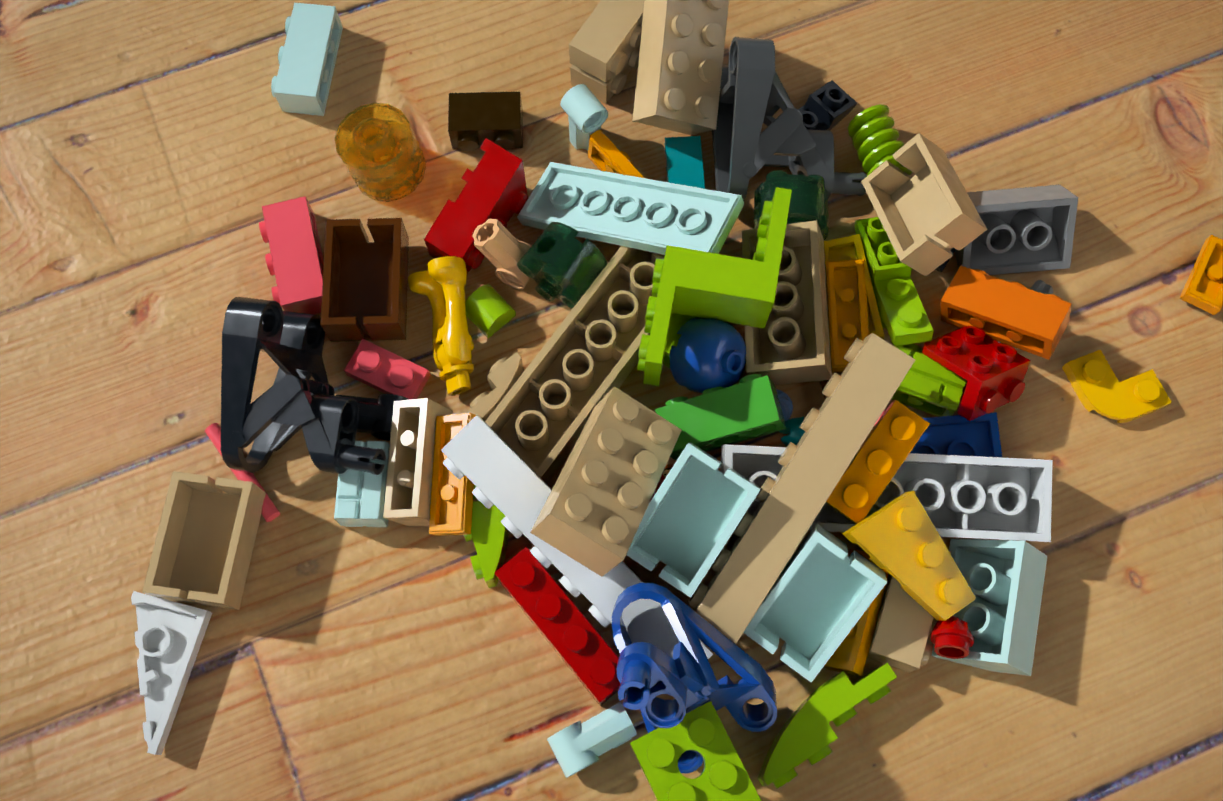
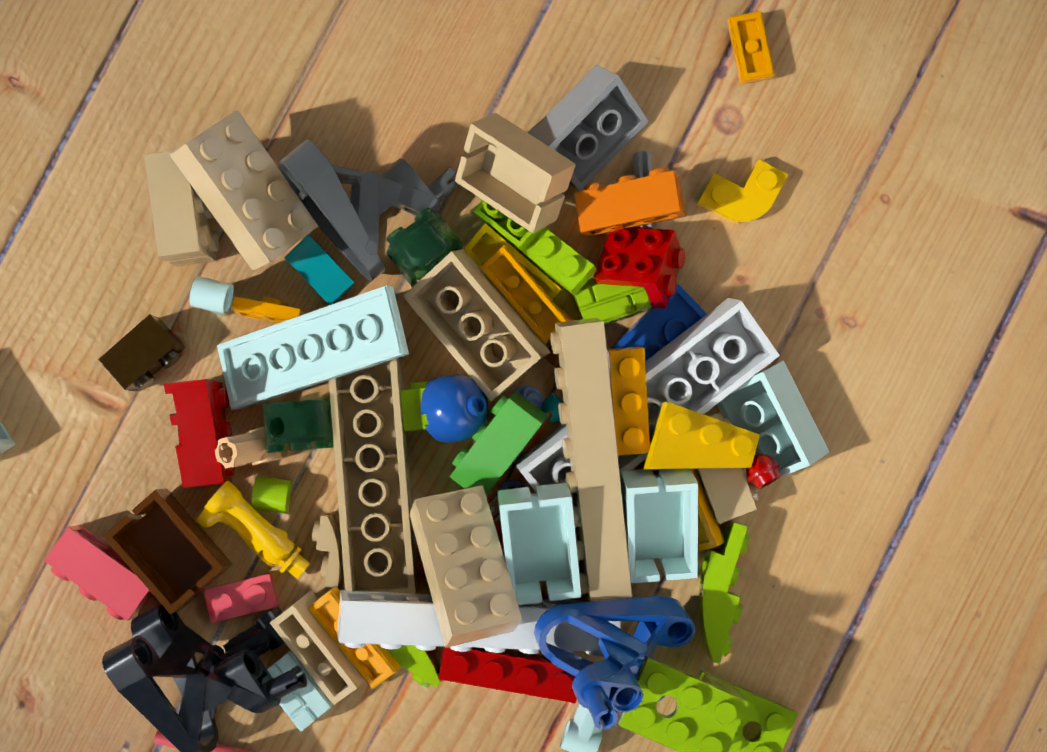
camera: 35 degrees left, 15 degrees up
(380, 151) = (90, 447): clear yellow wheel -> none
(714, 286) = (422, 371): lime bracket -> none
(826, 107) = (379, 140): black slope -> none
(875, 138) = (438, 135): lime piece -> none

